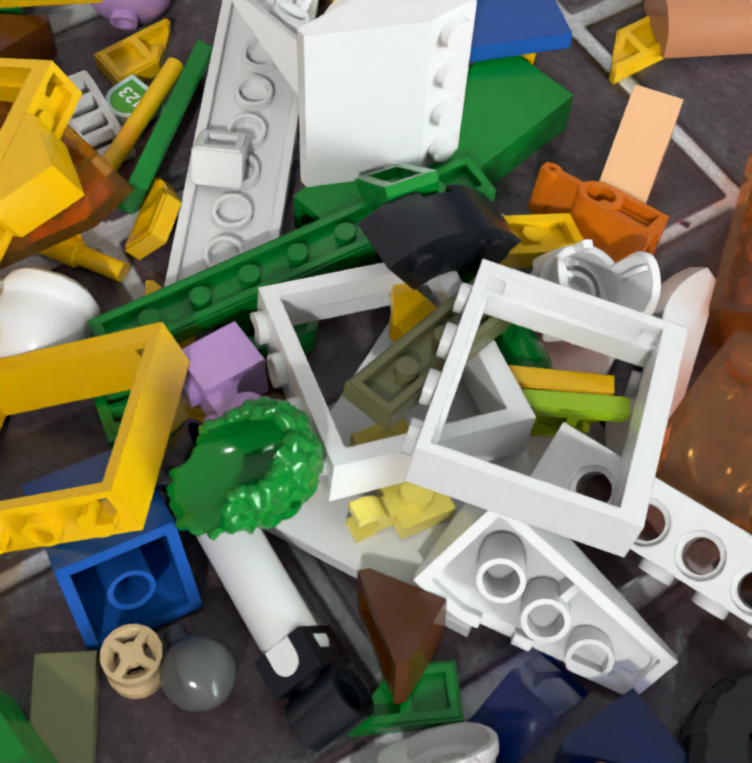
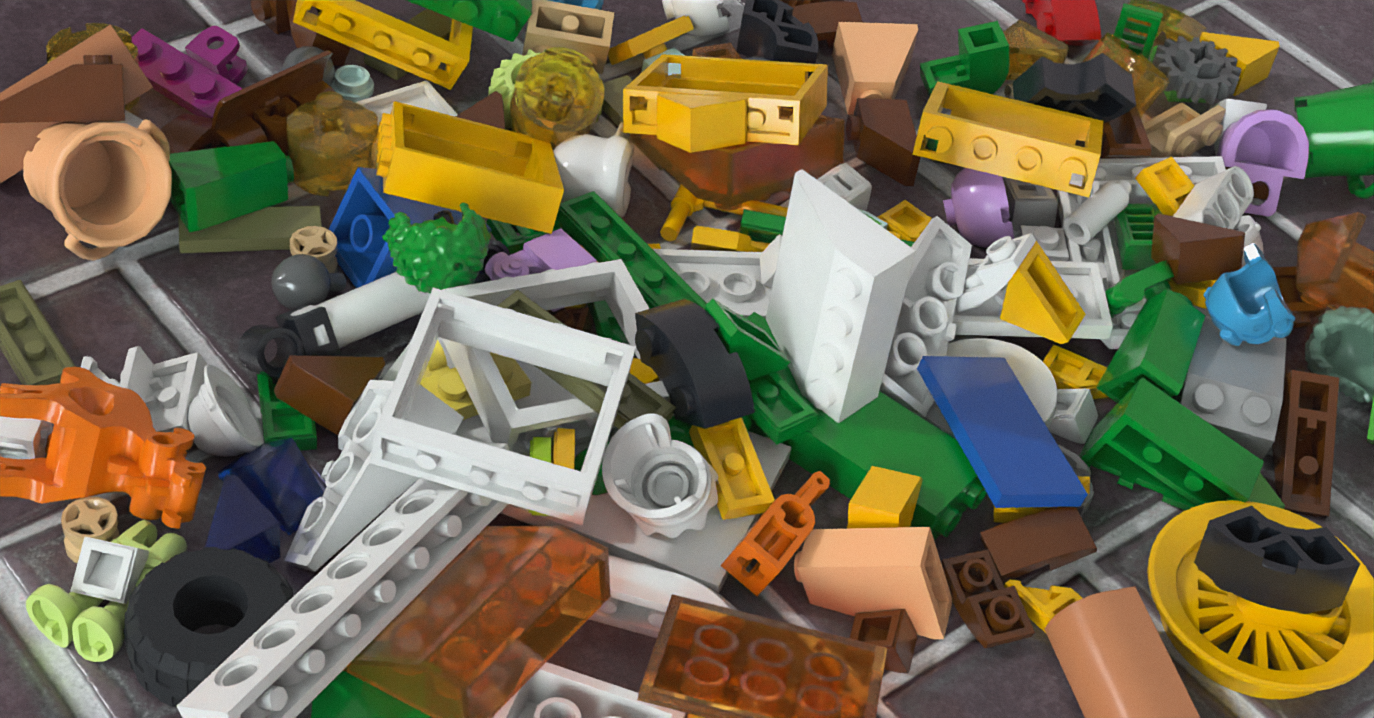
camera: 80 degrees right, 15 degrees down
(572, 132) = (884, 500): none -> yellow slope
(586, 57) = (1038, 540): none -> reddish brown slope
(609, 95) = (983, 602): none -> reddish brown slope
(684, 174) = (889, 630): none -> reddish brown slope

